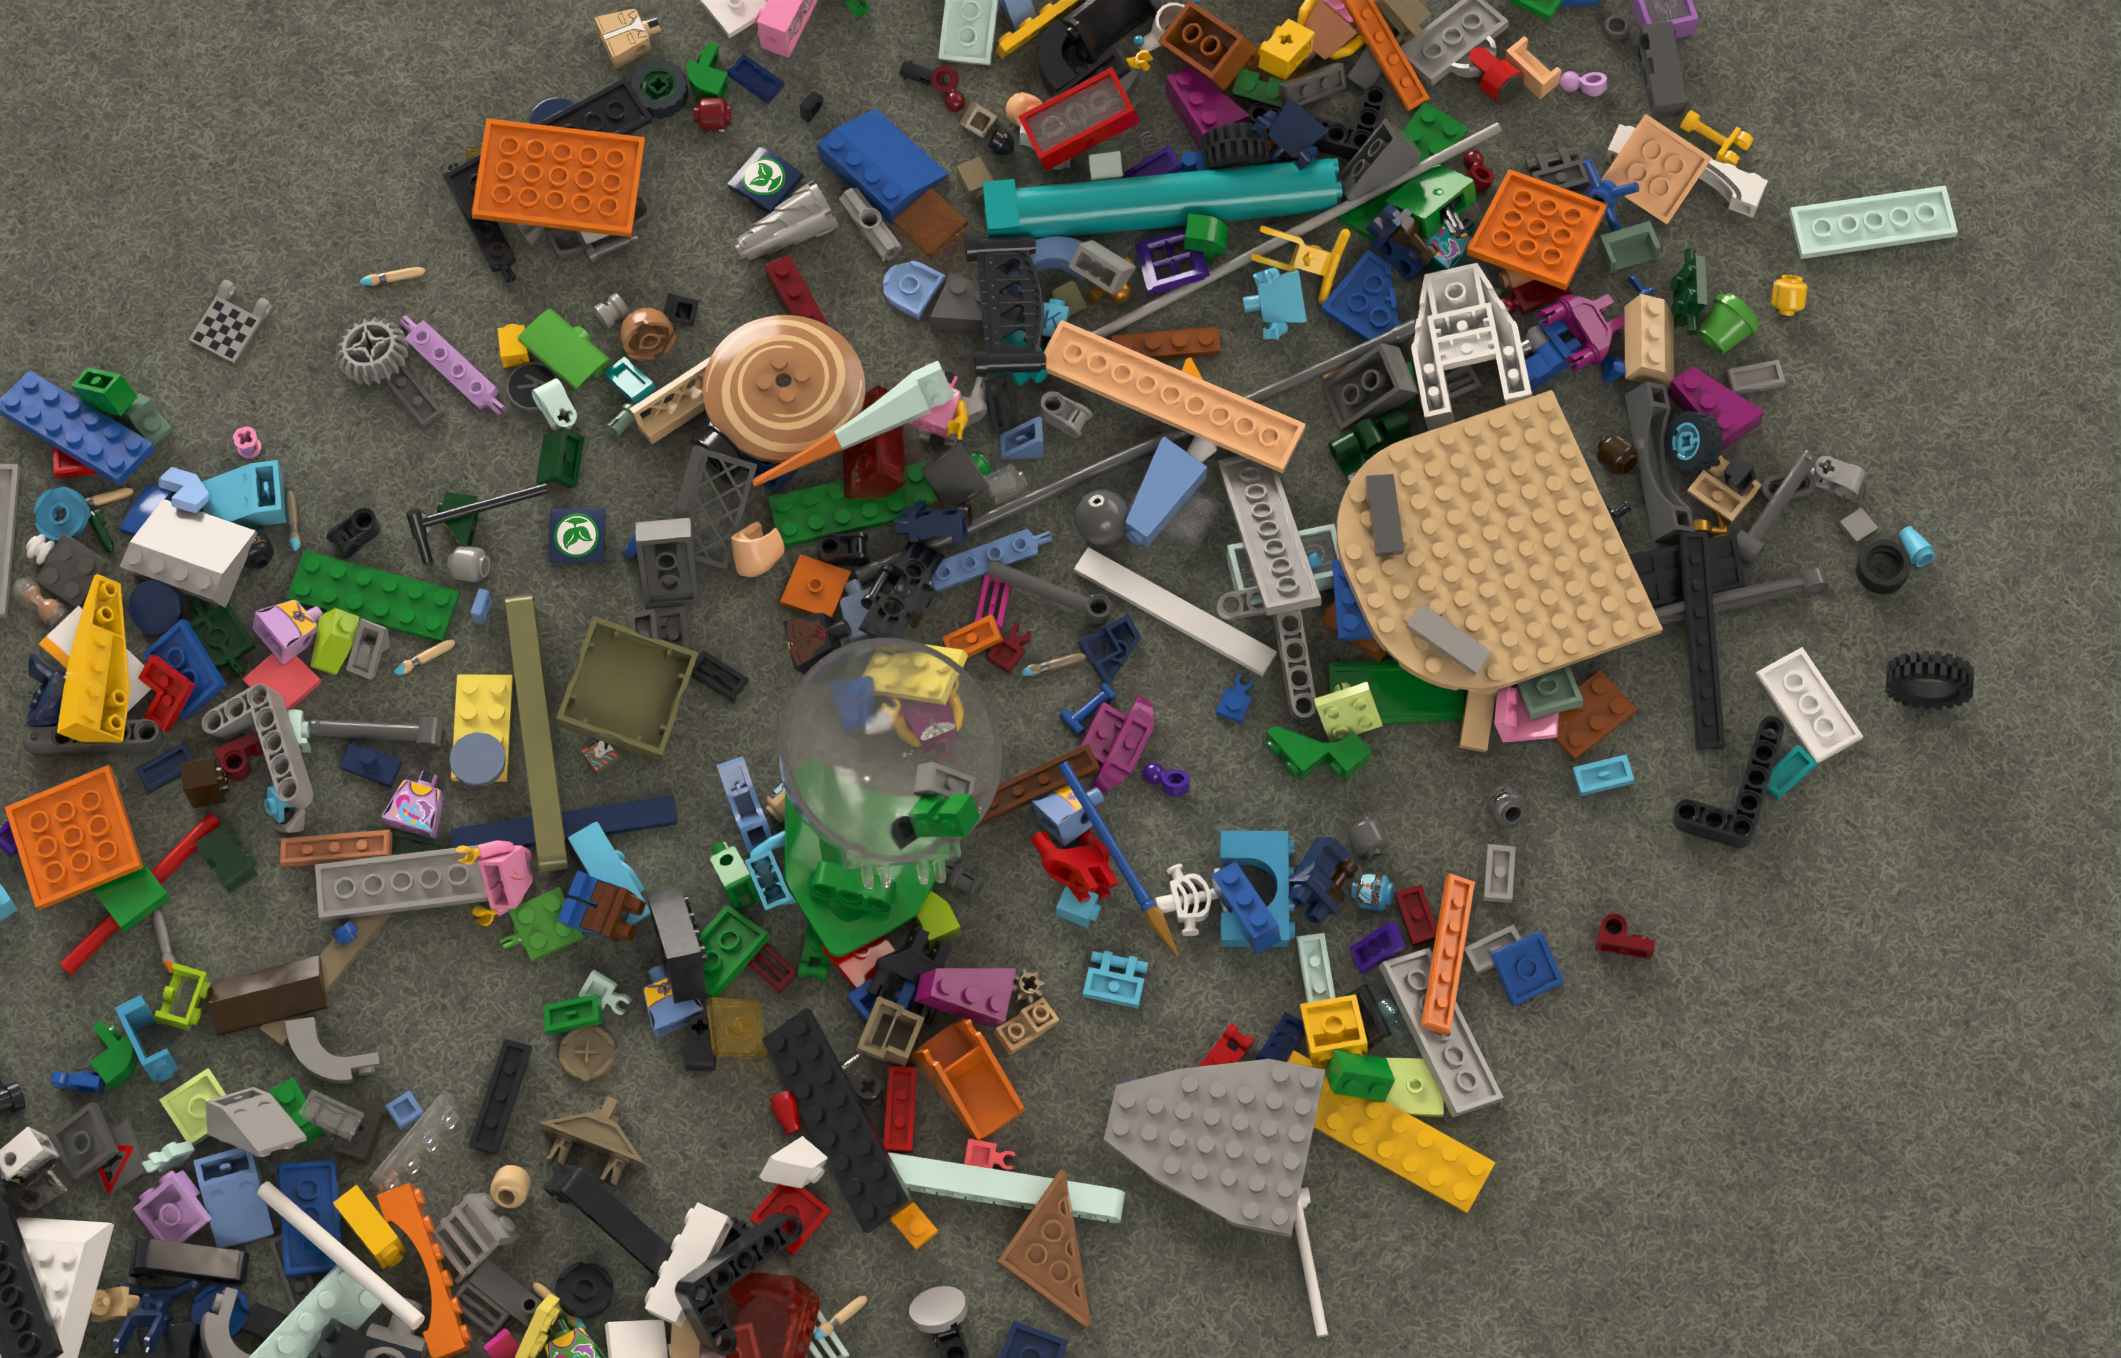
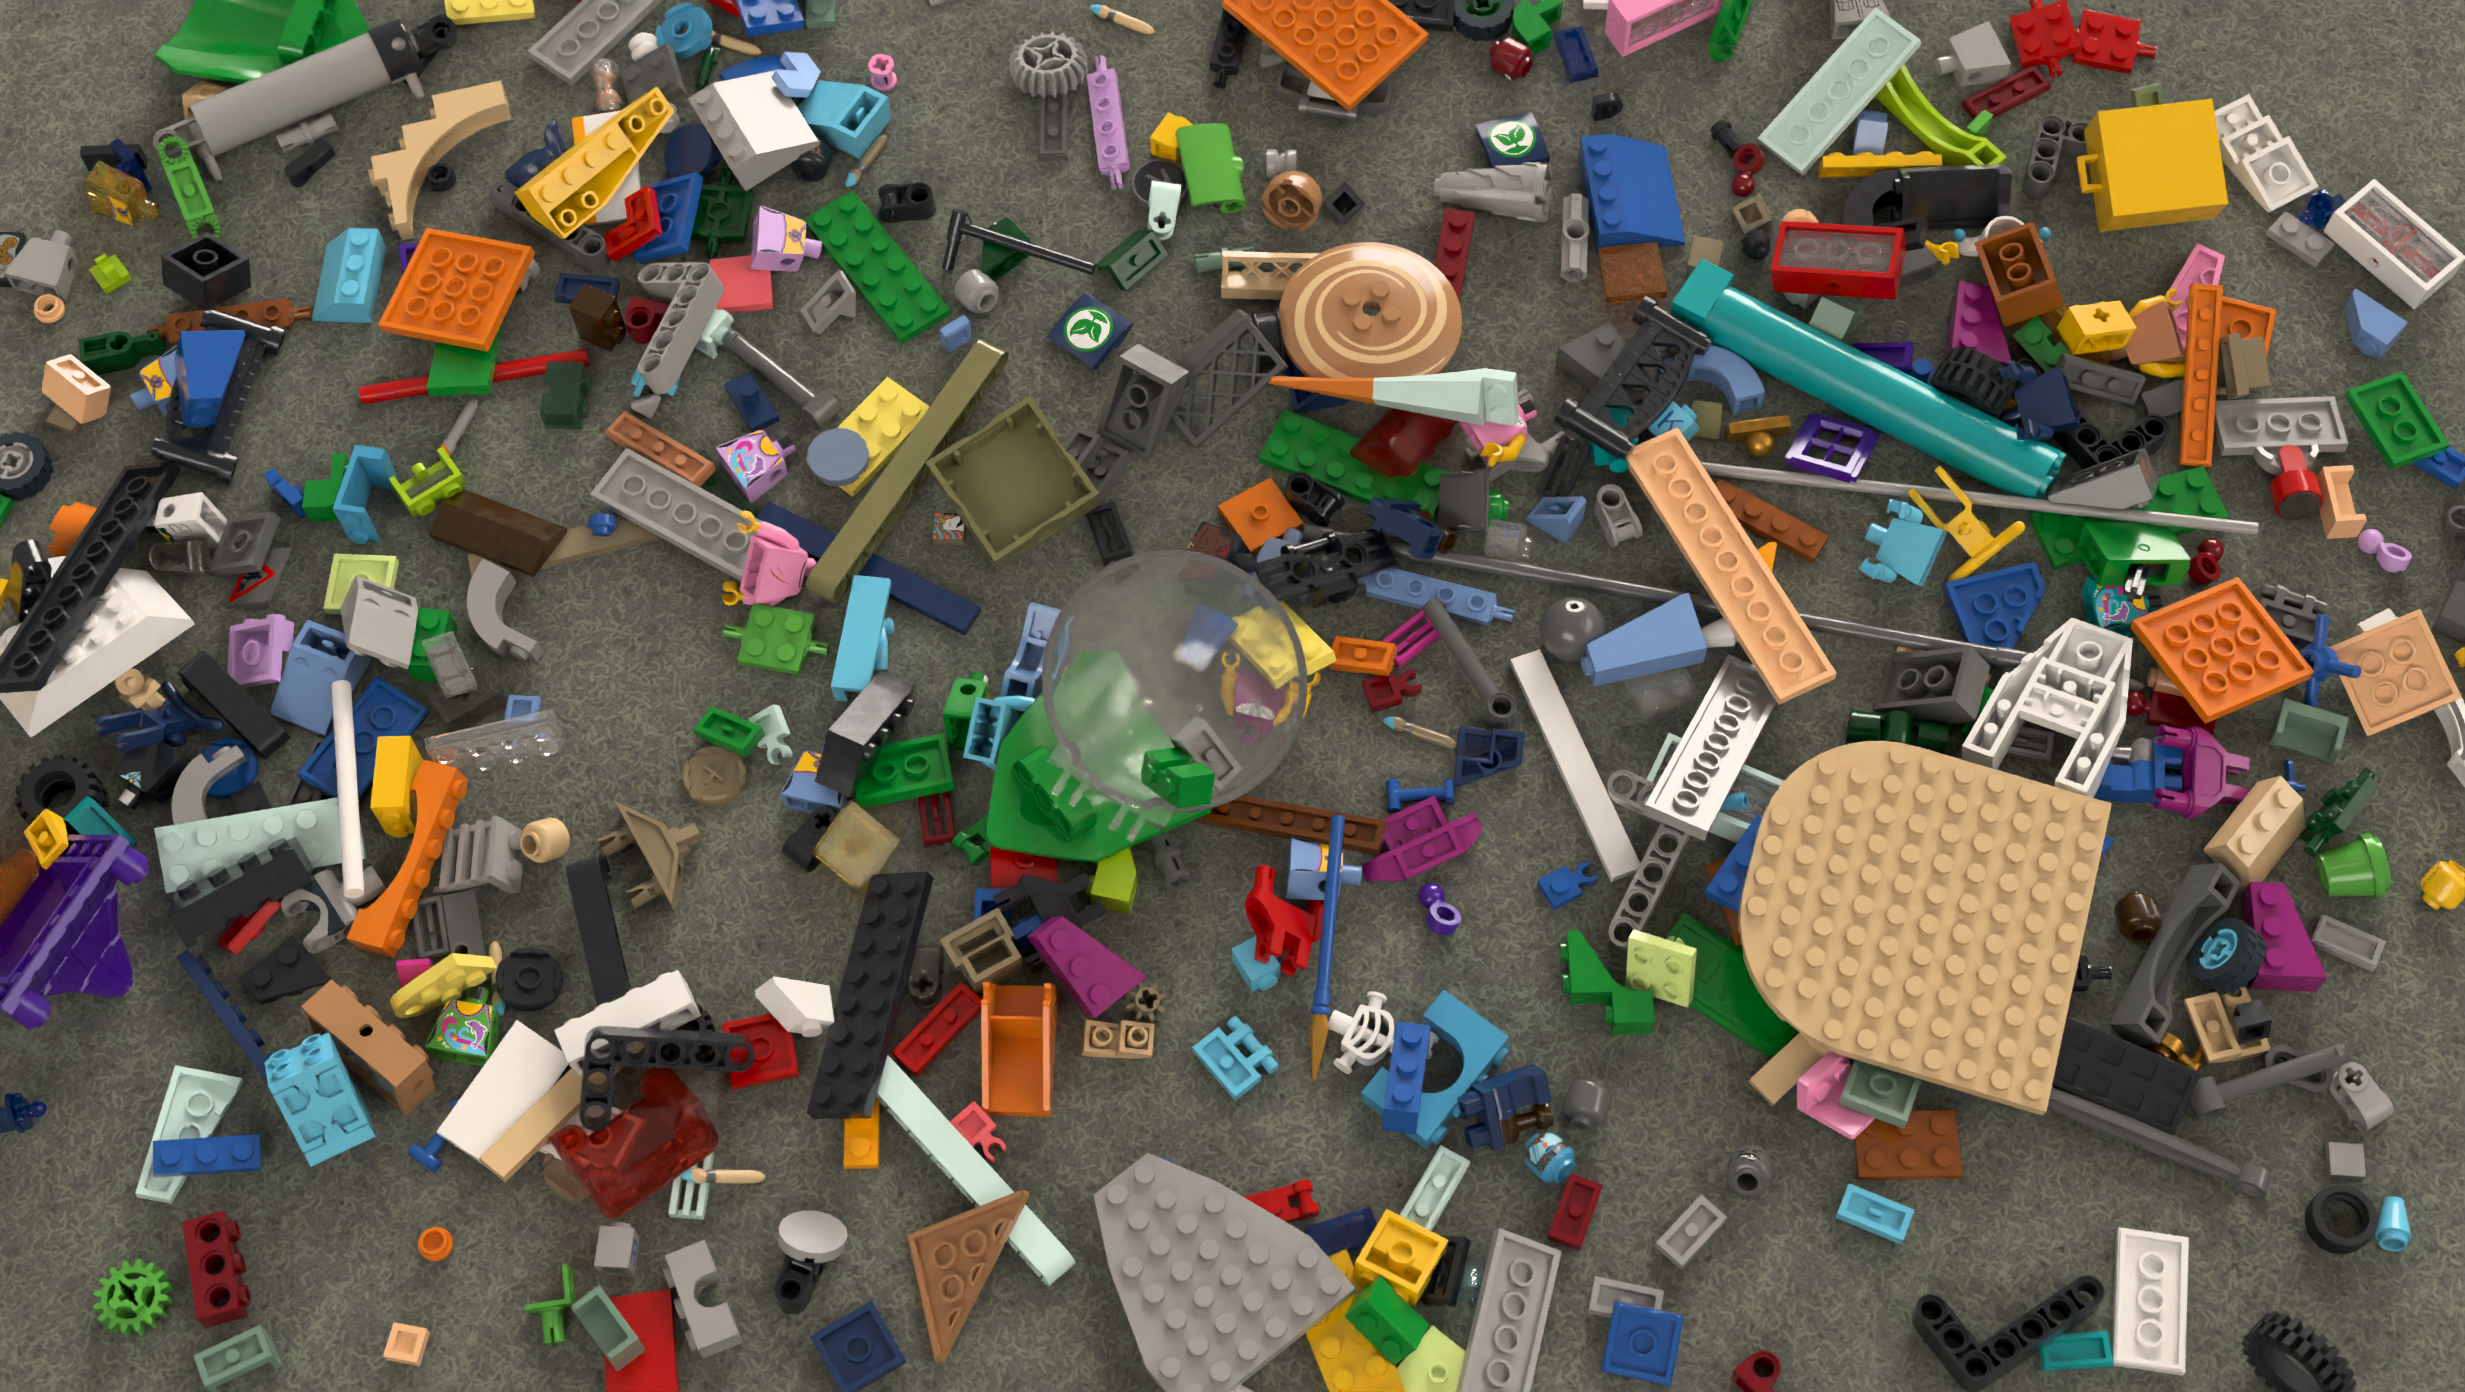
camera: 40 degrees right, 5 degrees down
(170, 1157) = (297, 606): light aqua plate -> none
(333, 640) = (807, 277): lime slope -> none
(433, 652) = (855, 342): tan piece -> none
(500, 1097) = (608, 758): black plate -> none
(611, 909) = (832, 662): reddish brown hips -> none
(629, 380) = (1246, 230): tile -> none
(754, 552) = (1231, 445): light nougat piece -> none
(786, 1111) = (836, 954): red cone -> none
(902, 832) = (1130, 769): black tile -> none
(912, 287) = (1567, 316): light blue tile -> none
(1101, 266) = (1755, 405): light grey brick -> none
(1206, 235) = (1880, 442): green brick -> none
(1377, 947) = (1508, 1212): dark purple tile -> none
(1384, 515) = (1838, 801): dark grey tile -> none
(1400, 243) = (2070, 573): dark blue hips -> none
(1448, 639) = (1808, 963): light grey tile -> none
(1448, 954) = (1572, 1270): orange tile -> none
(1612, 368) = (2199, 833): blue tile -> none
(1701, 640) = (2082, 1154): black tile -> none

